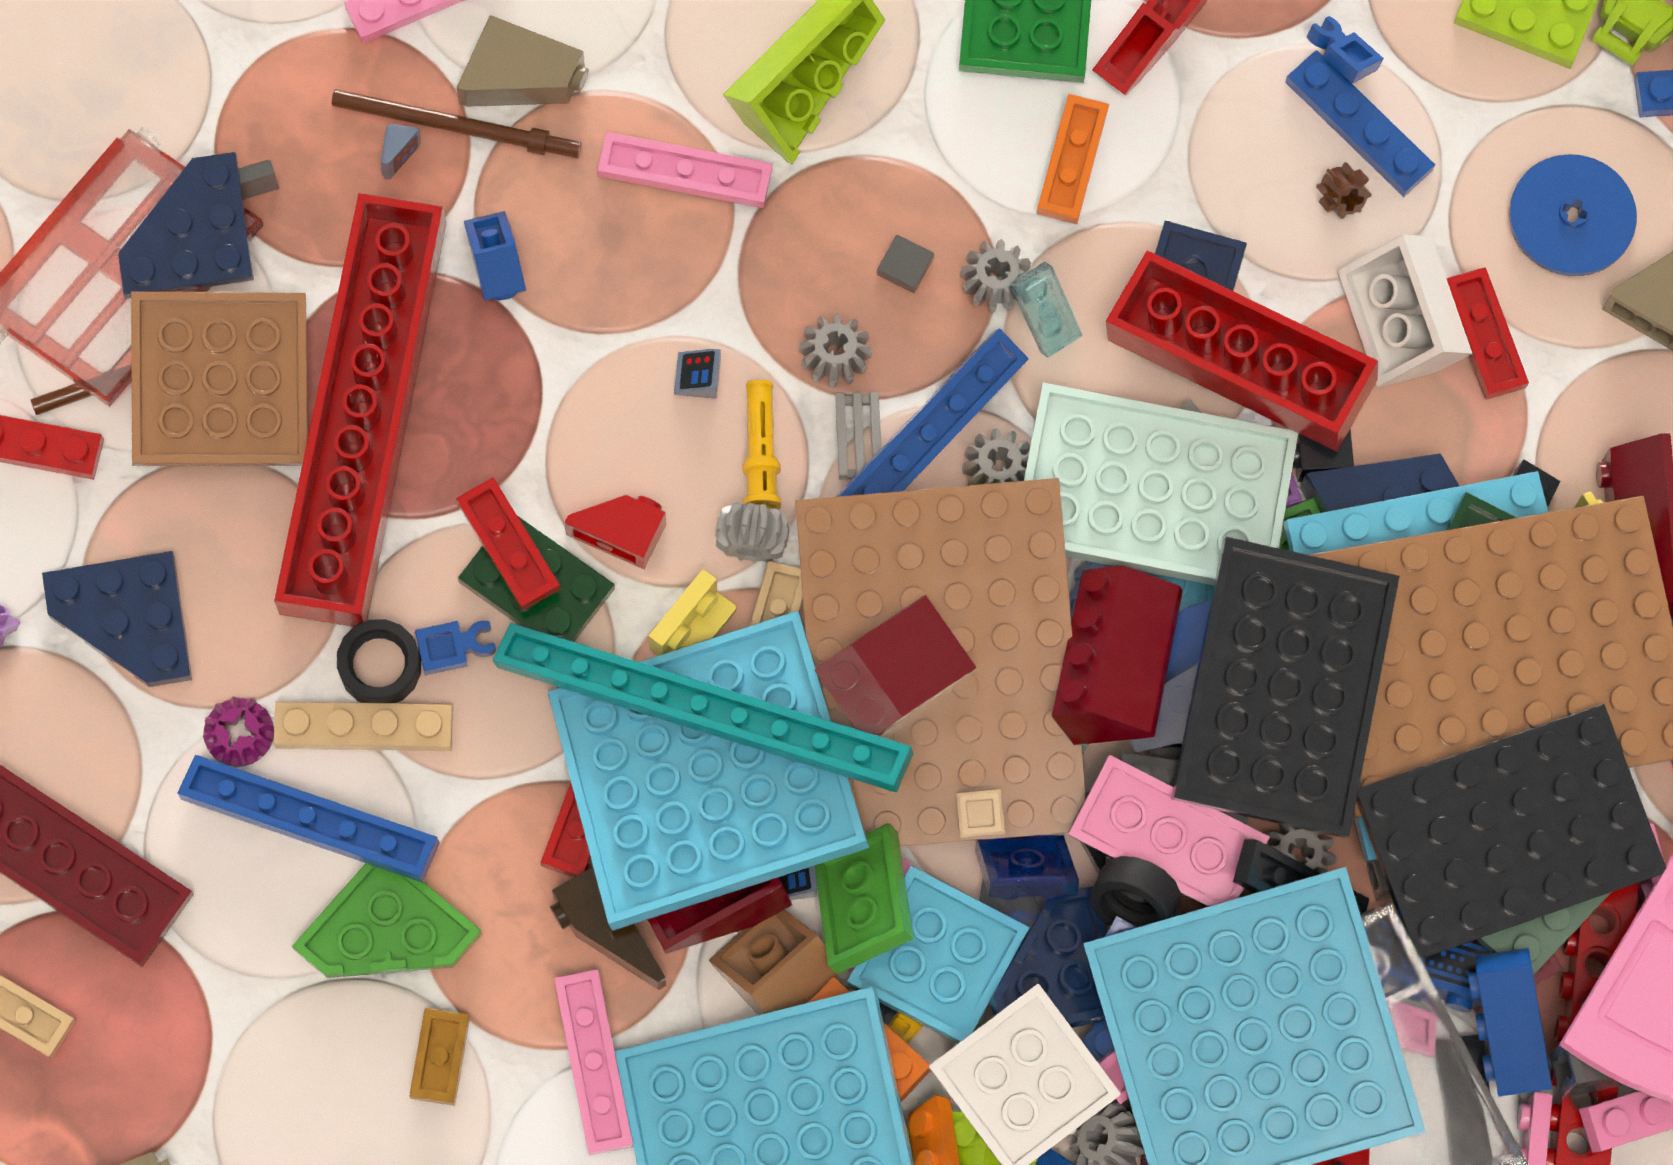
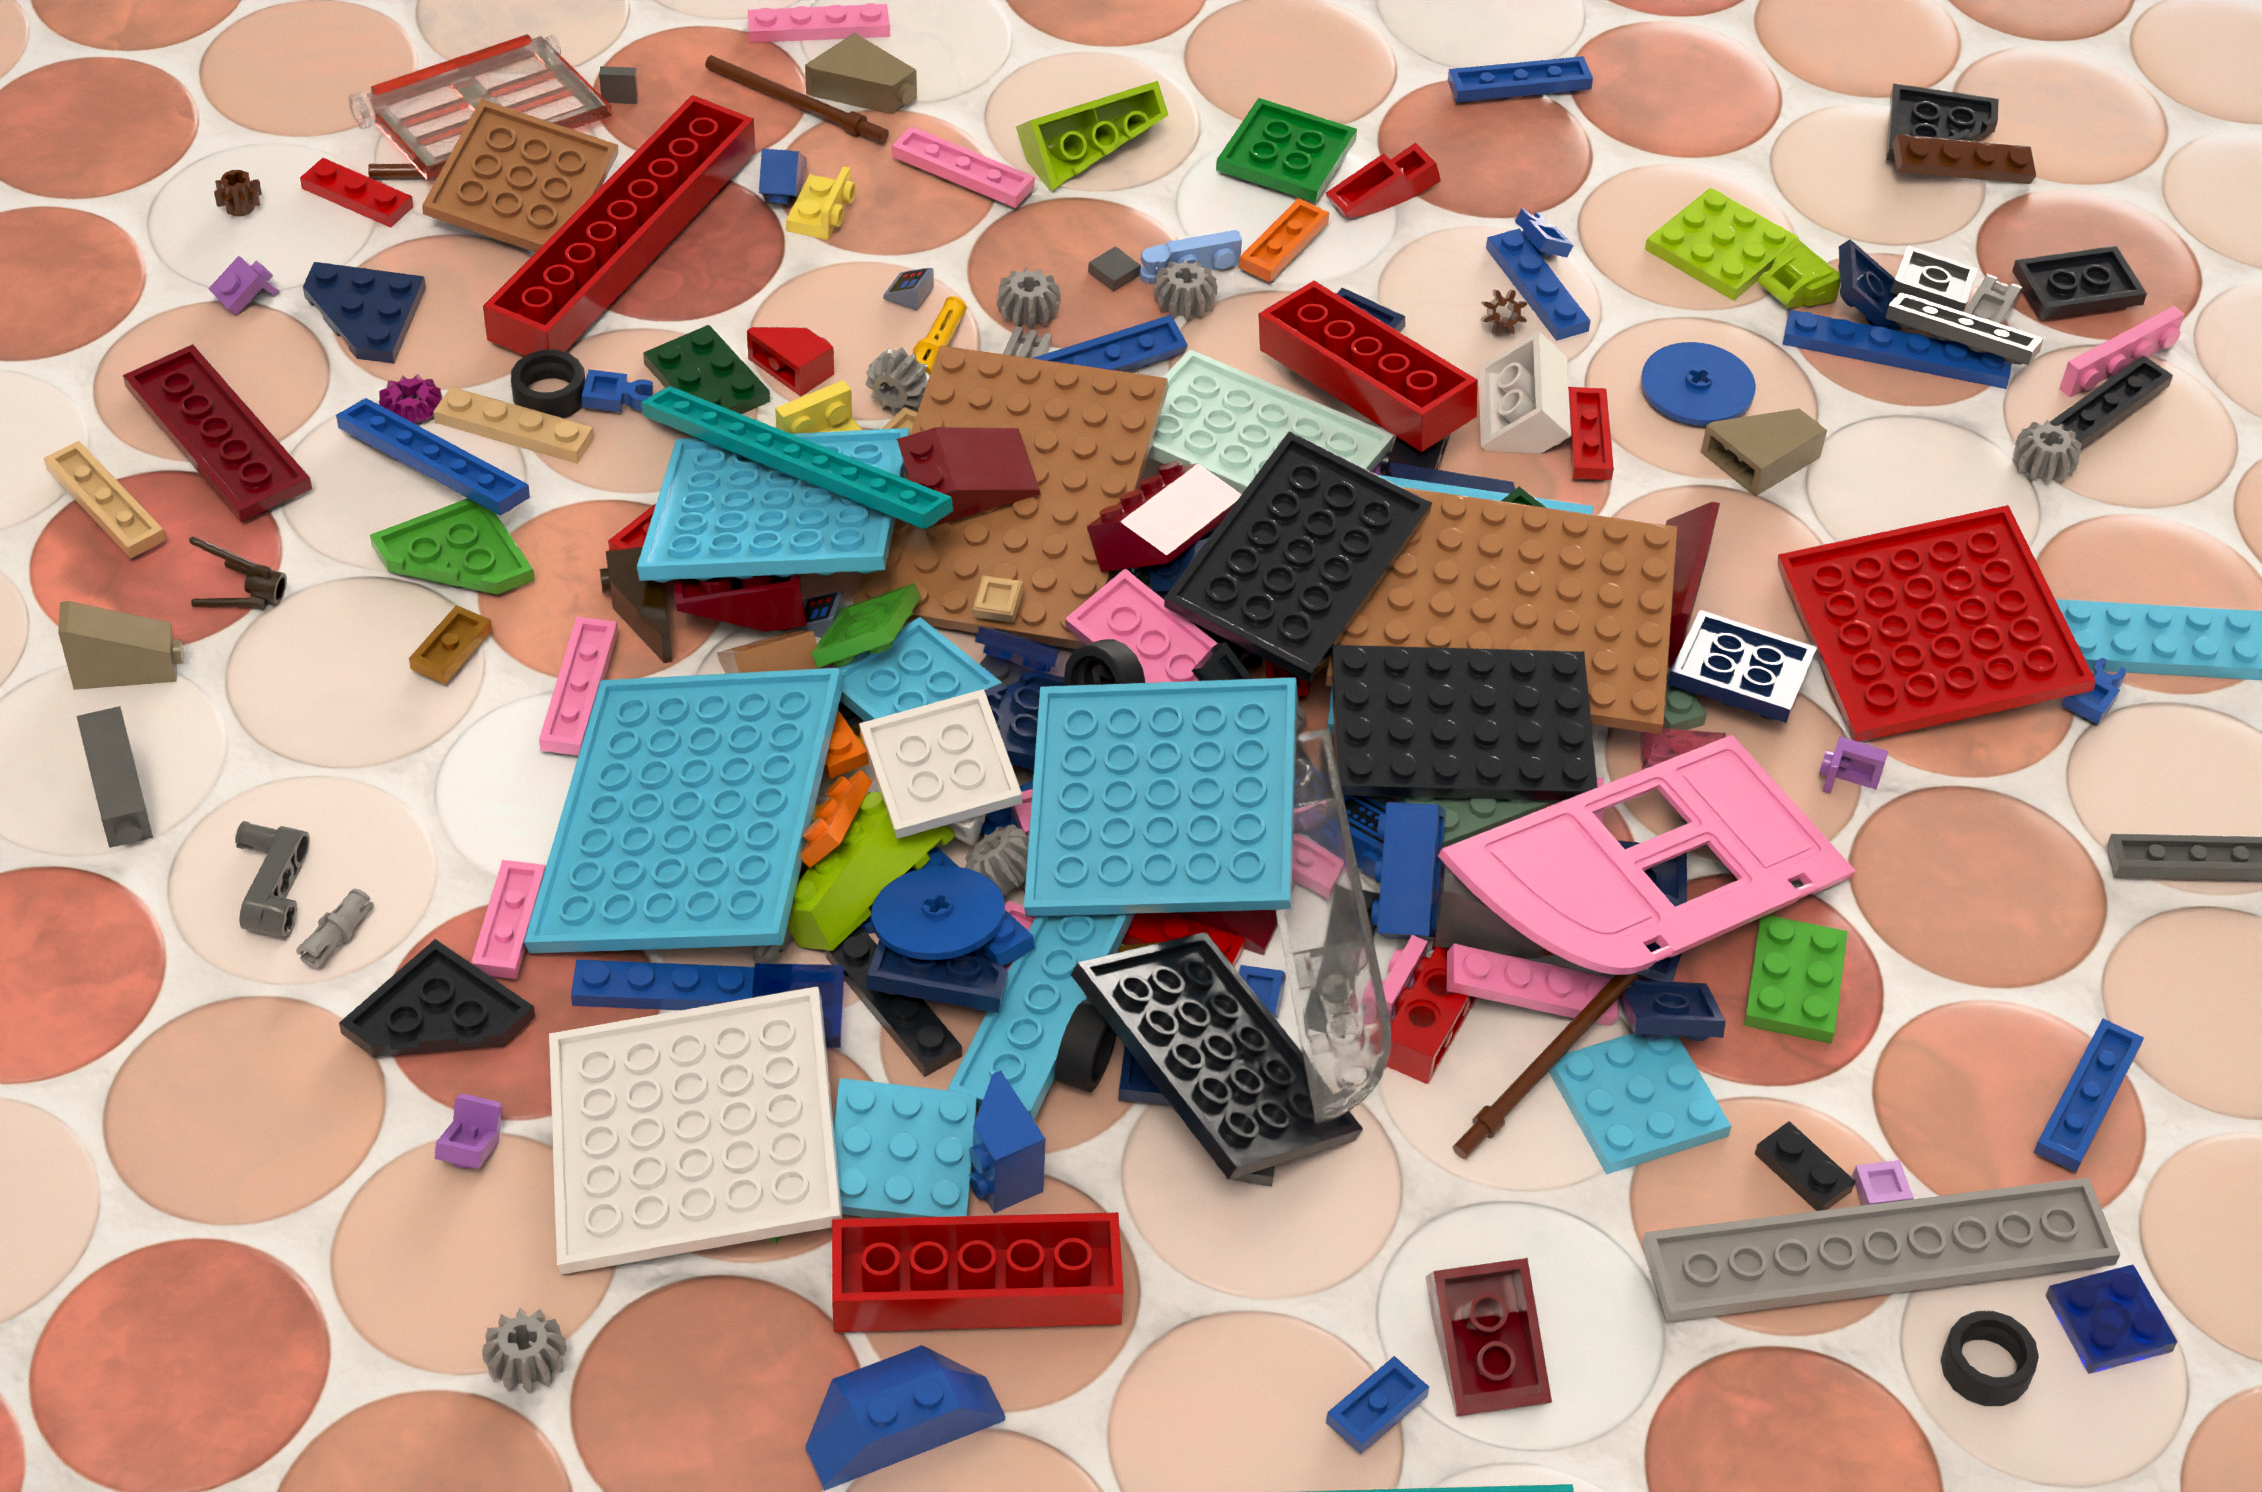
camera: 20 degrees right, 25 degrees down
(192, 233) = (555, 87): dark blue plate -> none
(209, 1047) = (261, 581): none -> dark brown plant
(398, 146) = (743, 93): sand blue slope -> none
(508, 544) = (693, 331): red plate -> none
(551, 283) = (821, 205): none -> light yellow bracket
(983, 224) = (1211, 250): none -> light blue hinge
(1046, 309) = (1215, 312): clear light blue plate -> none

